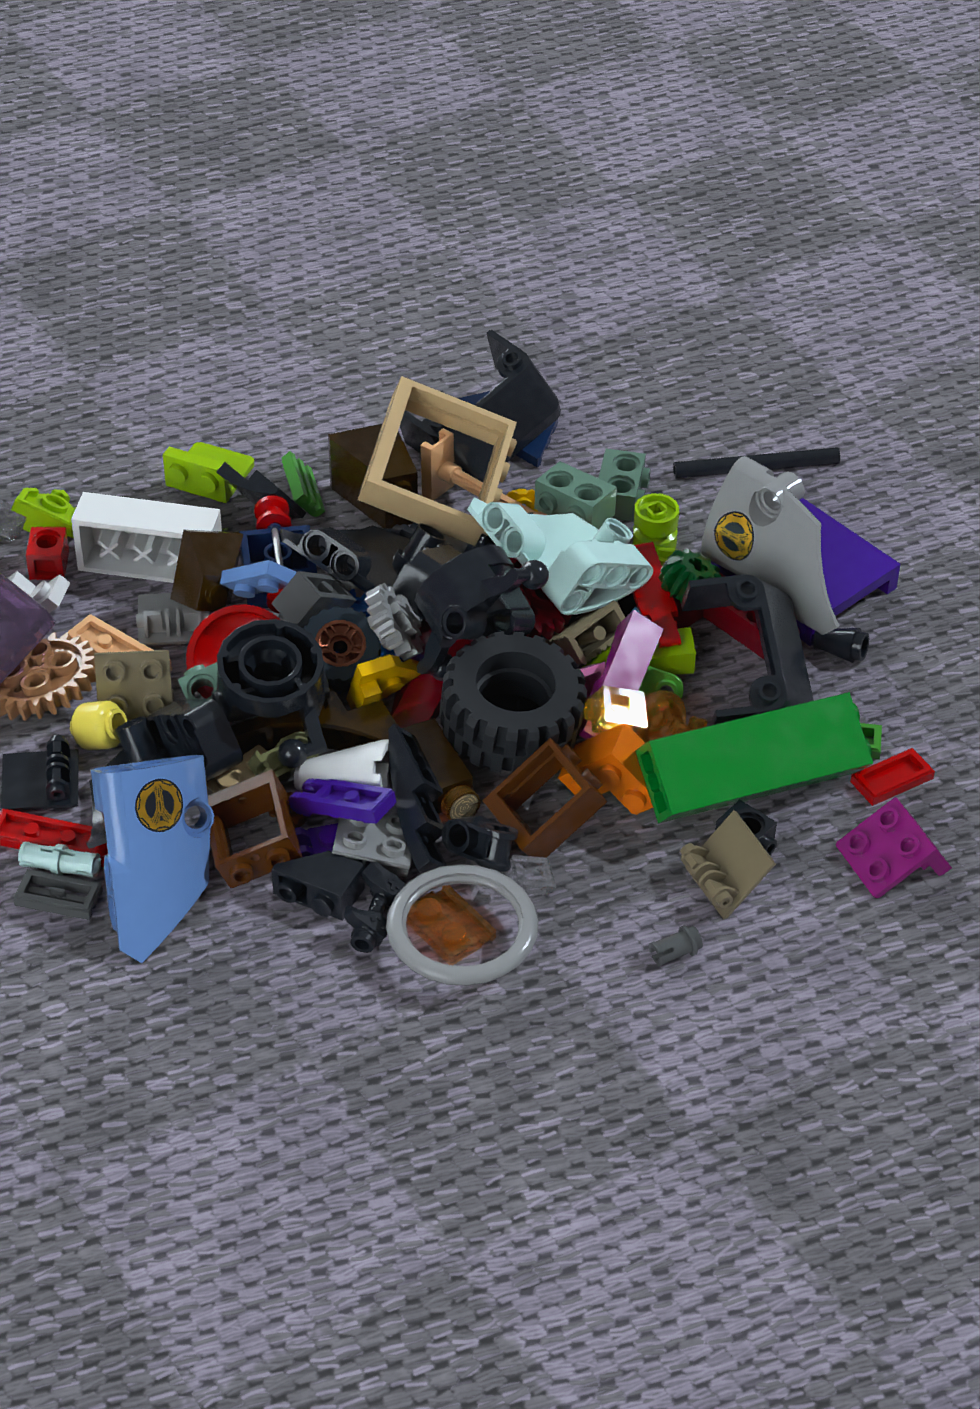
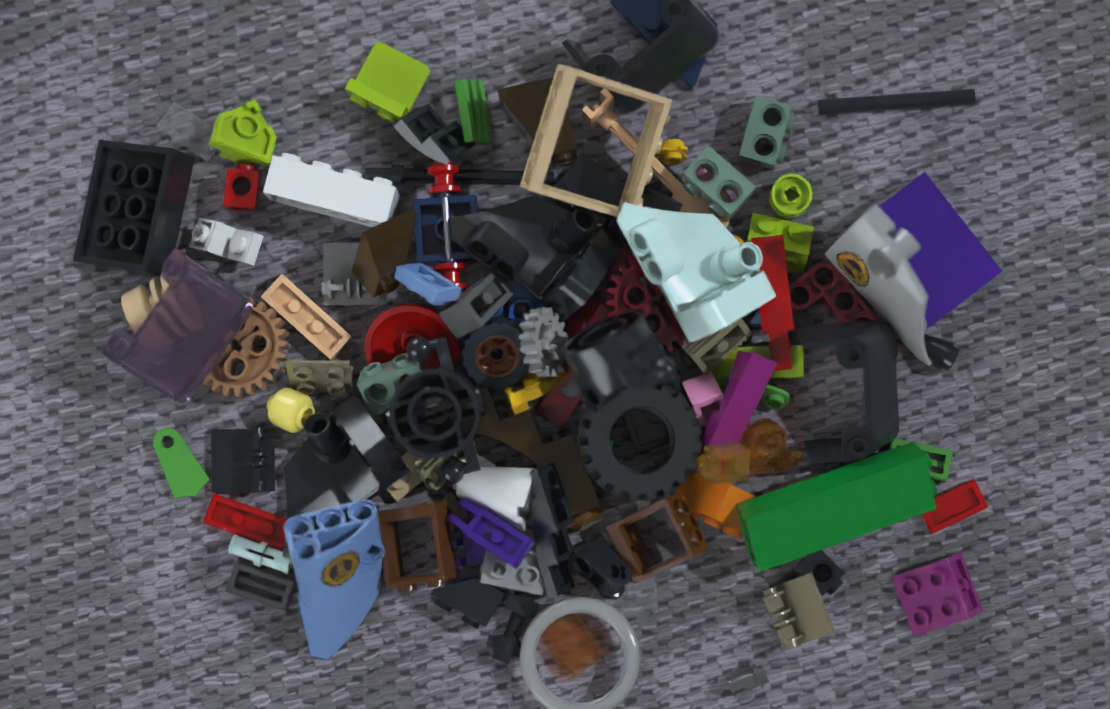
camera: 10 degrees right, 40 degrees up
(682, 568) = (809, 298): dark green gear -> none

